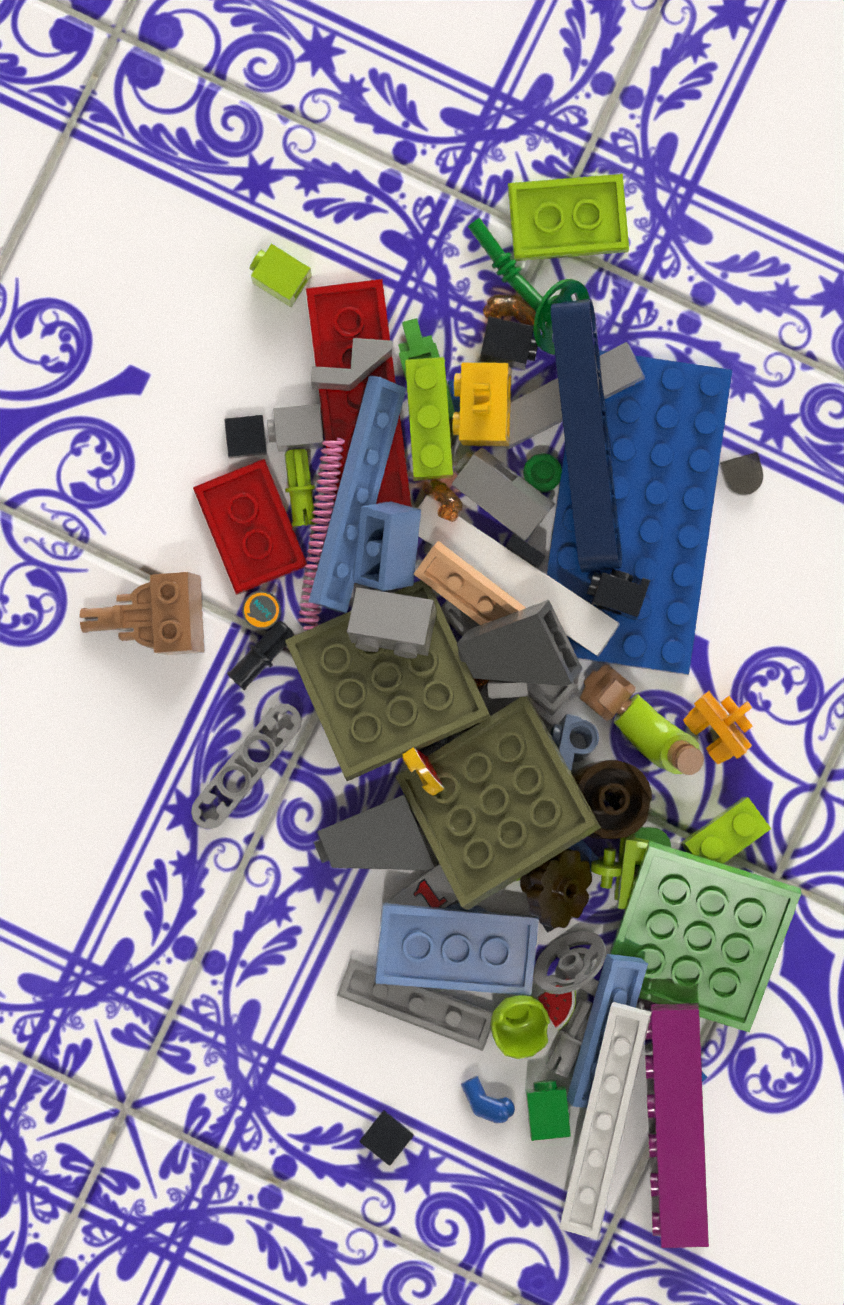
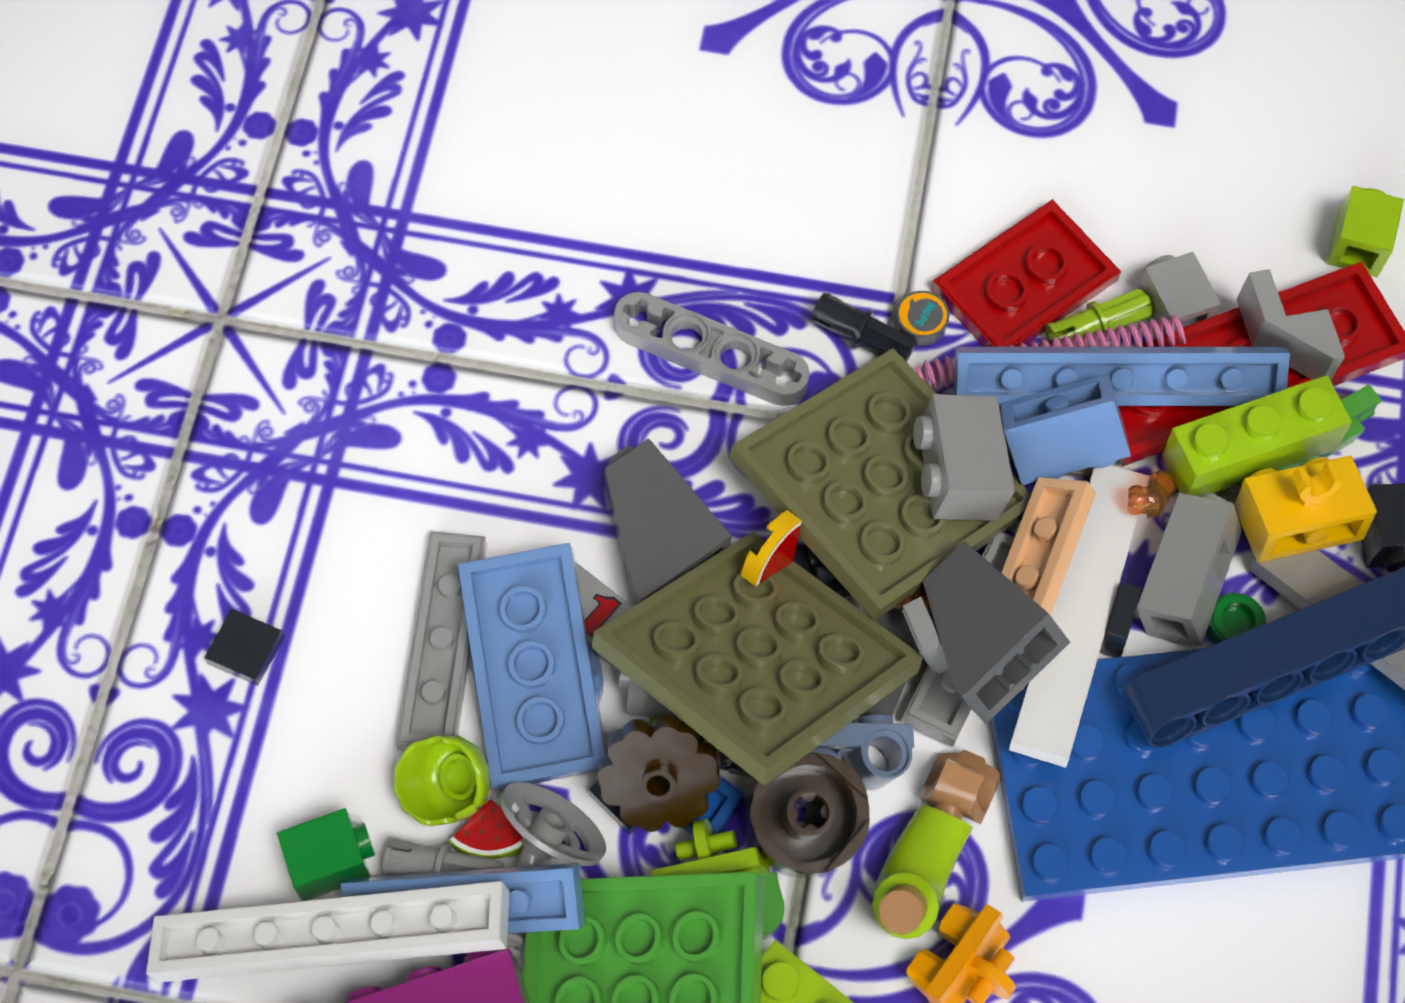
camera: 75 degrees right, 20 degrees down
(162, 613) = (877, 196): medium nougat brick -> none
(245, 436) = (1137, 244): black tile -> none
(484, 1106) = (316, 769): blue arm -> none
(618, 593) = (1110, 752): black brick -> none
(742, 474) = (1343, 903): clear smoke tile -> none

